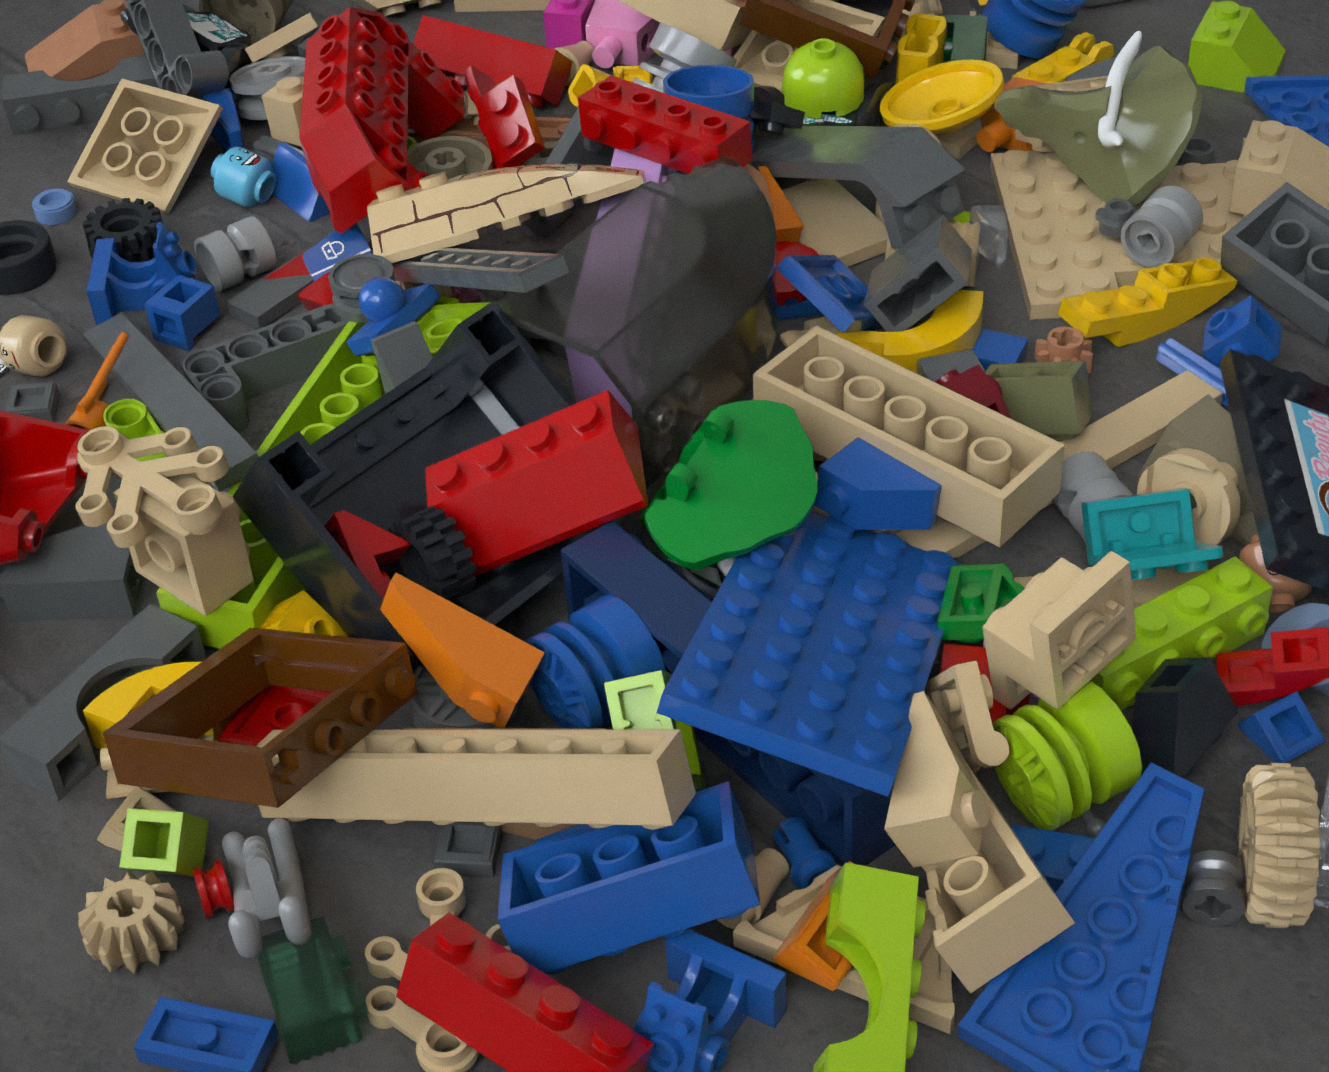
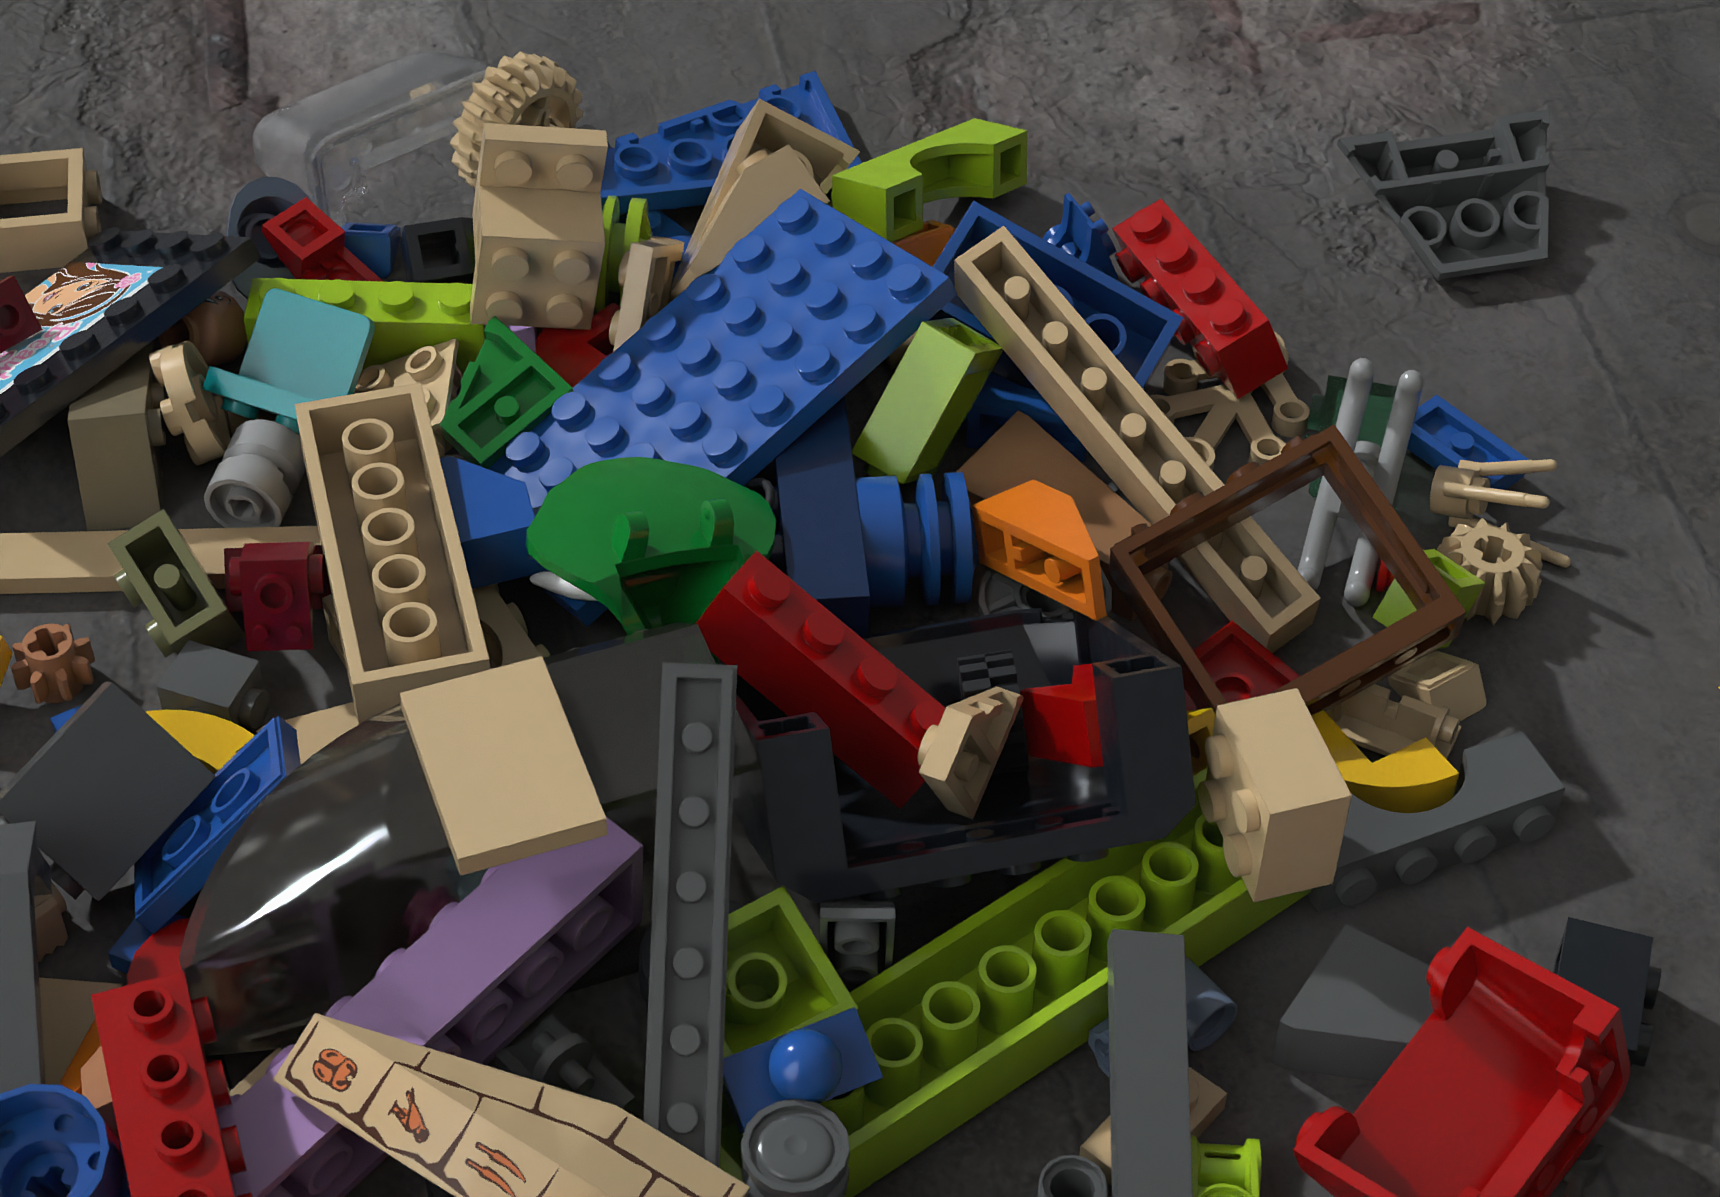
camera: 150 degrees left, 5 degrees up
(109, 452) = (1273, 680): tan plant -> none
(180, 976) = (1464, 492): none -> tan plant
(407, 469) = (966, 746): none -> tan wing
(629, 229) = (502, 765): none -> tan tile

